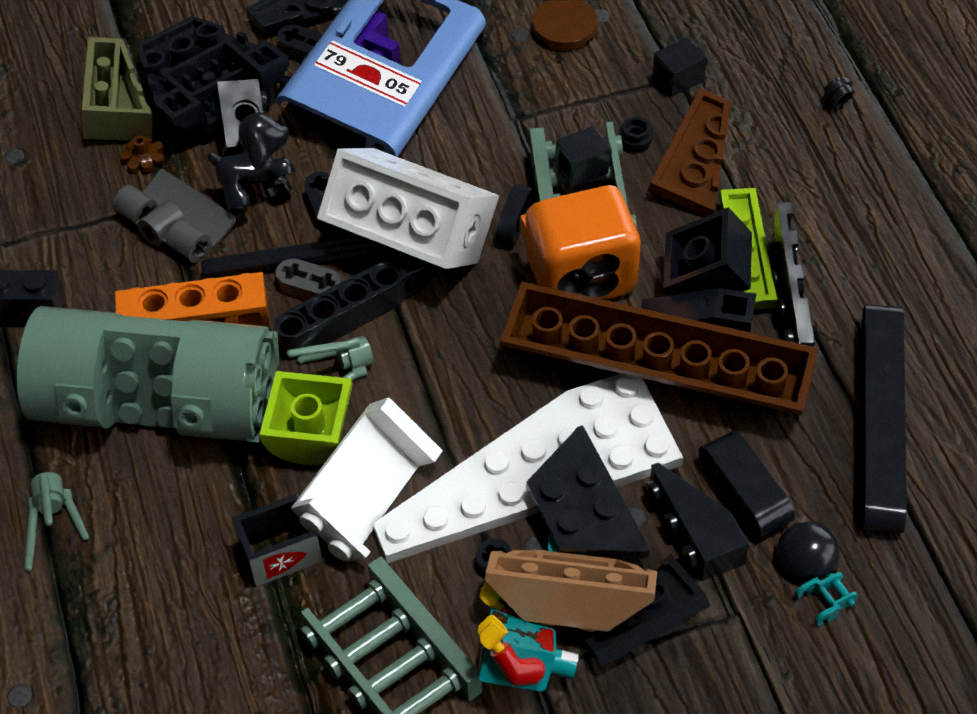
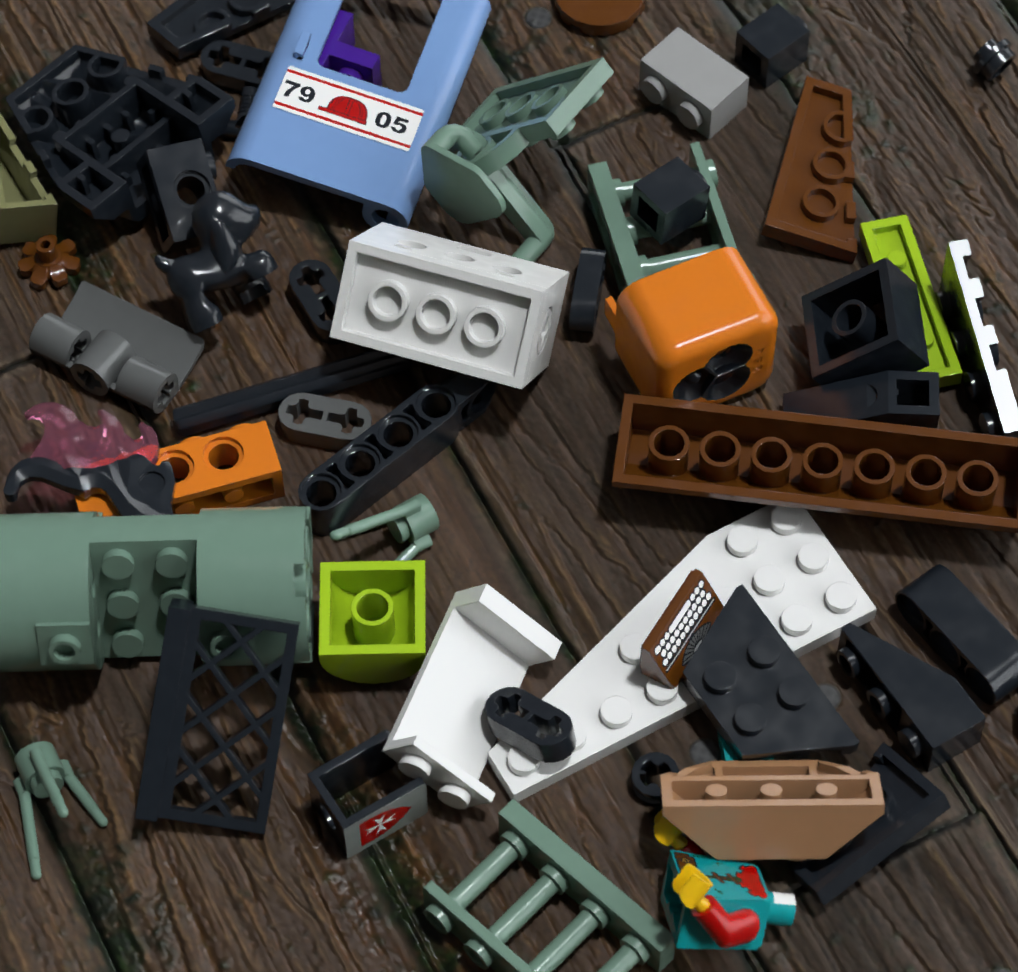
camera: 10 degrees left, 5 degrees up
(134, 284) = (96, 461): none -> piece
(140, 458) = (170, 711): none -> black fence
(400, 510) = (535, 718): none -> black beam
(447, 128) = (468, 161): none -> sand green plate
(529, 451) = (680, 630): none -> slope
(618, 85) = (693, 83): none -> light grey brick
(636, 133) = (729, 141): black plate -> none

